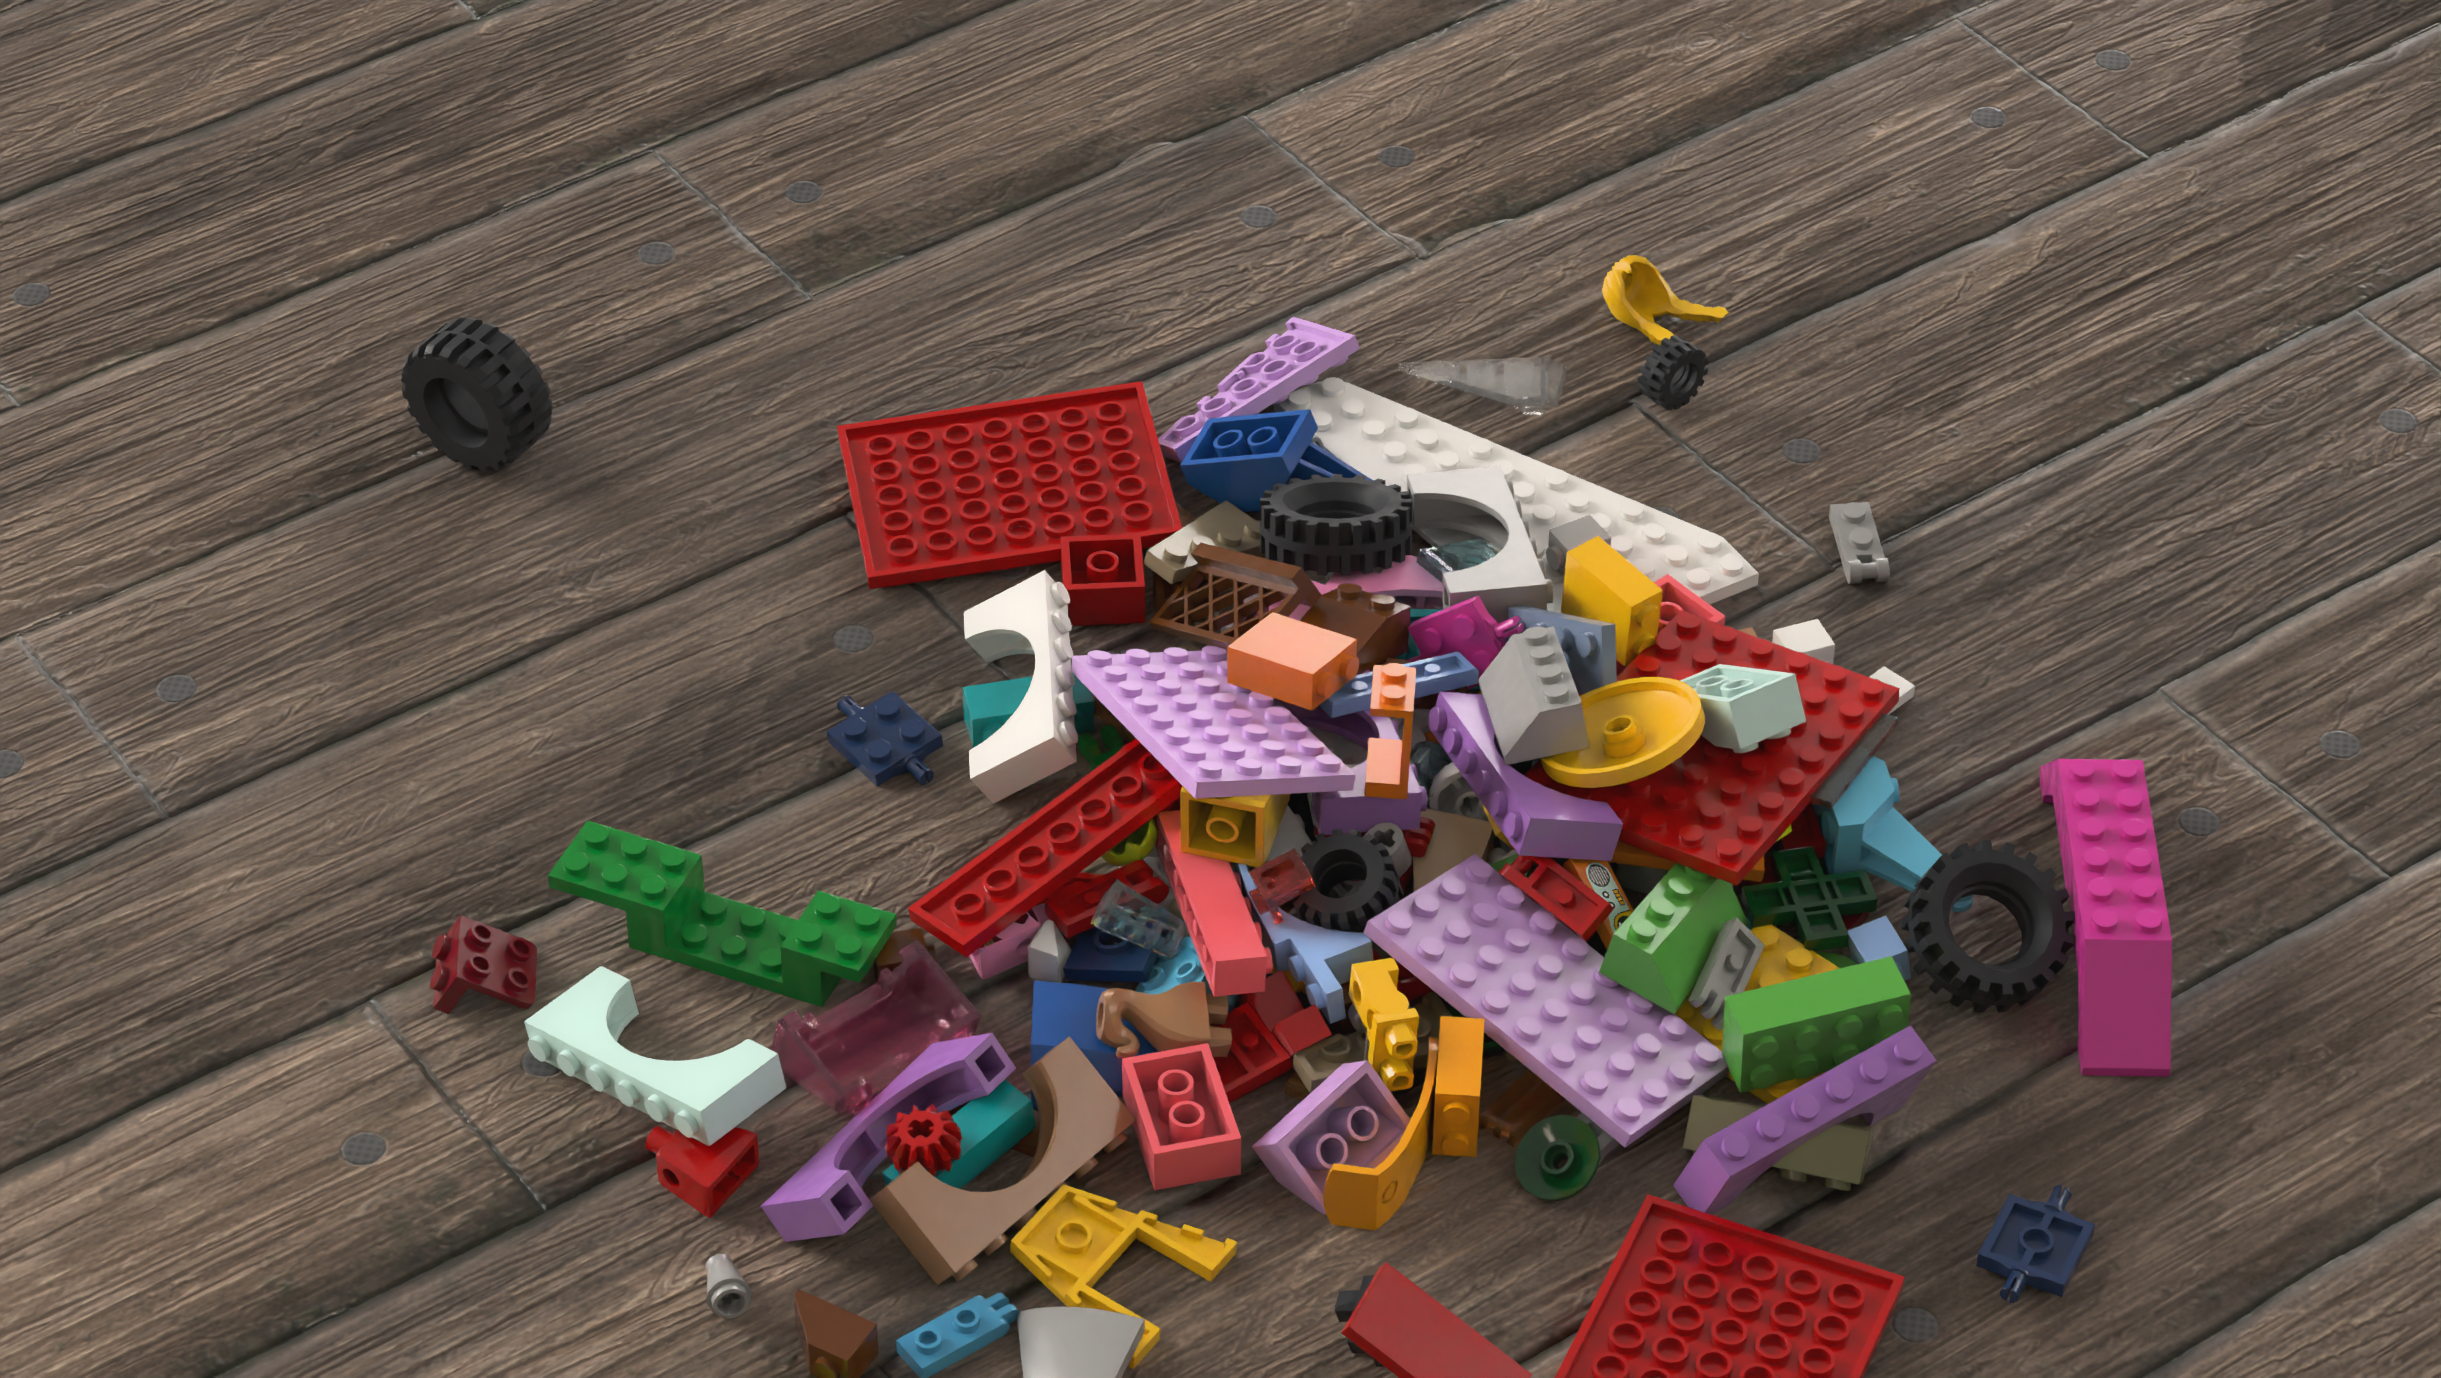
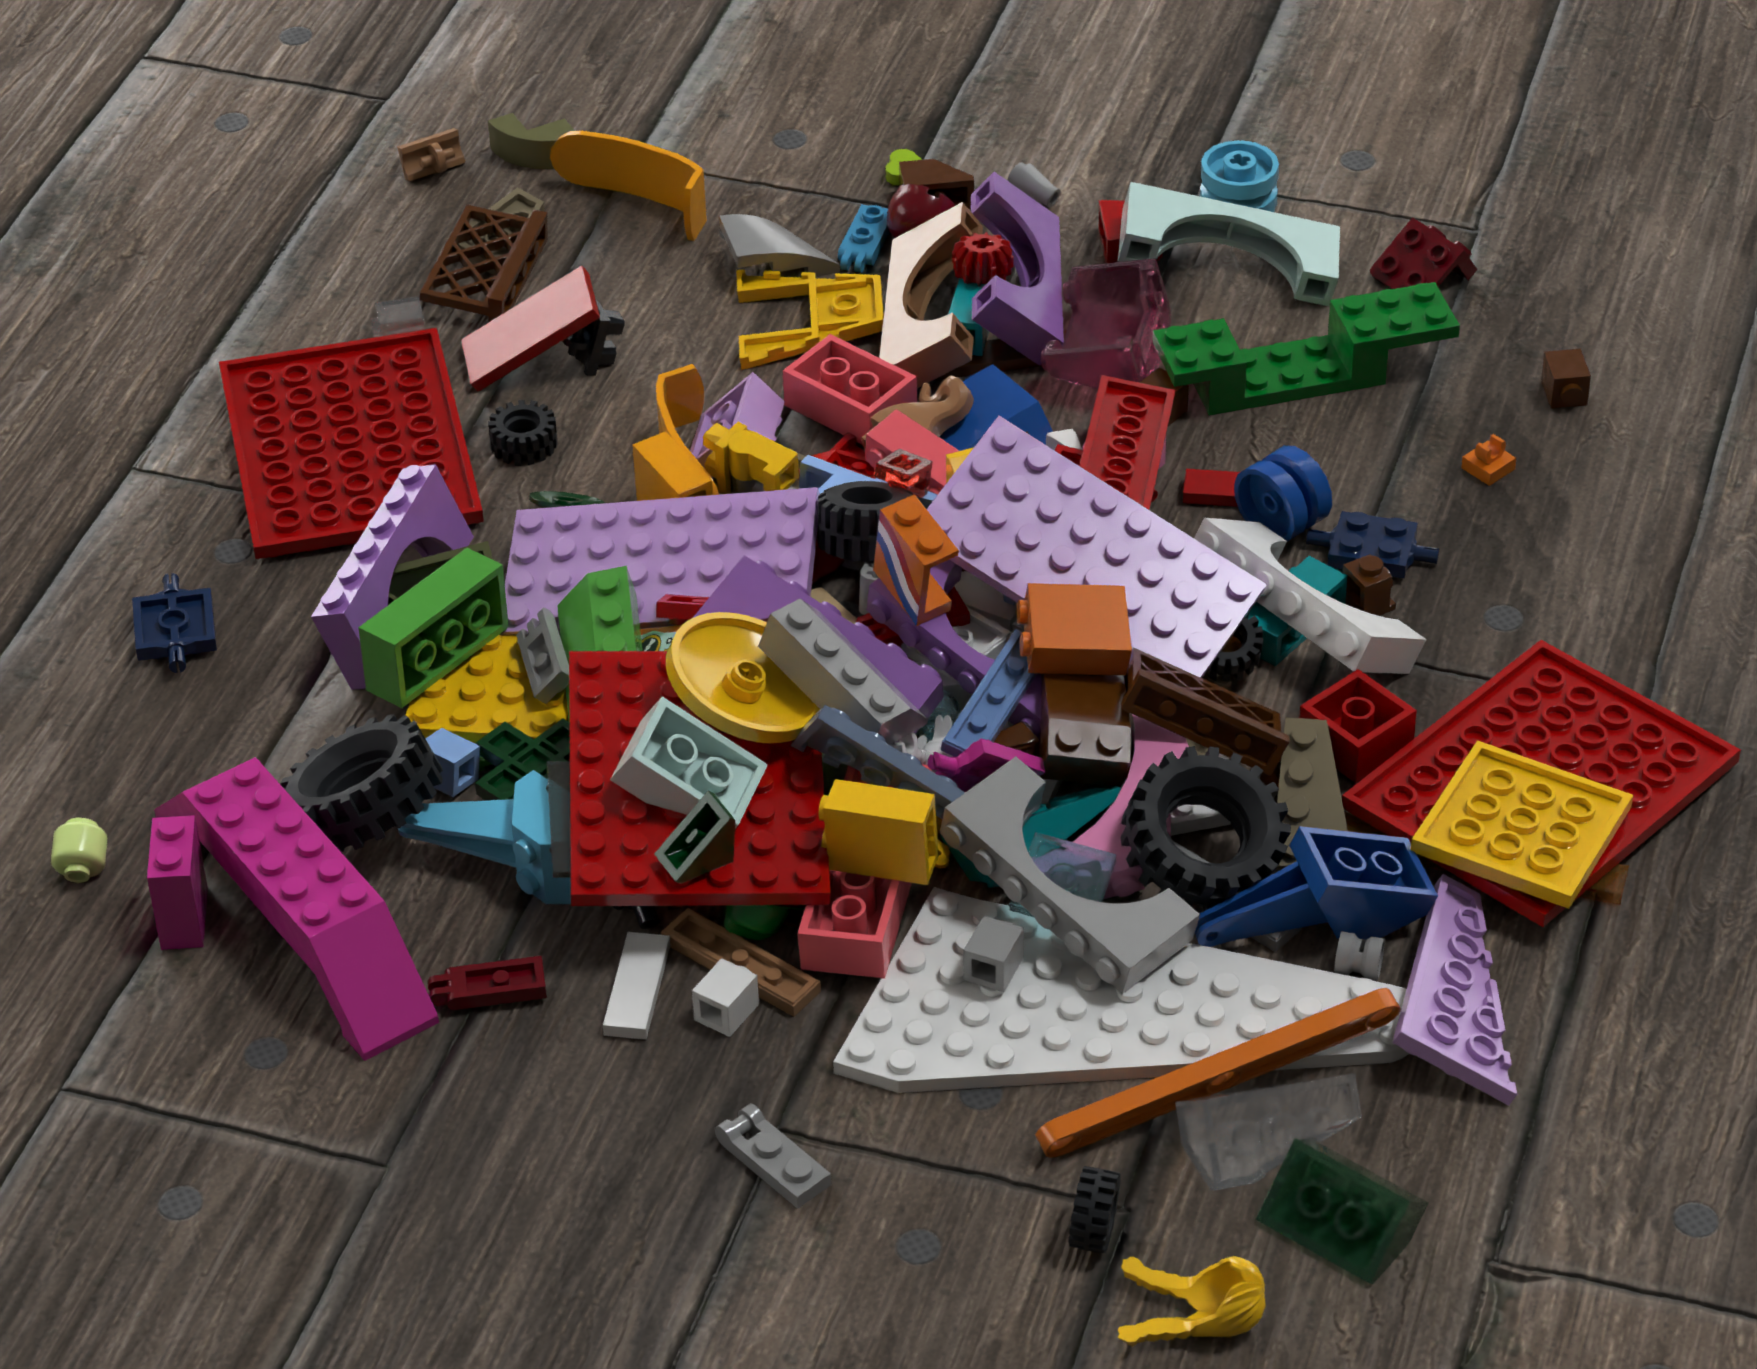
camera: 145 degrees right, 0 degrees up
(529, 781) = (1565, 378): none -> reddish brown brick
(538, 1146) = (1240, 174): none -> medium azure wheel
(690, 758) = (1489, 461): none -> orange tile
(896, 1285) = (912, 207): none -> dark red cylinder
(928, 778) = (1284, 492): none -> blue wheel
(933, 855) = (1209, 487): none -> red tile
(945, 689) = (1369, 585): none -> reddish brown brick
(1085, 429) = (1522, 824): none -> yellow plate
(1492, 309) = (1341, 1210): none -> clear green slope
(1520, 414) = (1217, 1072): none -> orange beam
(1526, 1295) = (523, 432): none -> black tyre
(1772, 645) = (700, 841): none -> slope
(1981, 761) = (489, 983): none -> dark red hinge
(2207, 930) = (177, 882): none -> dark pink brick
(2266, 1047) = (79, 849): none -> yellowish green head

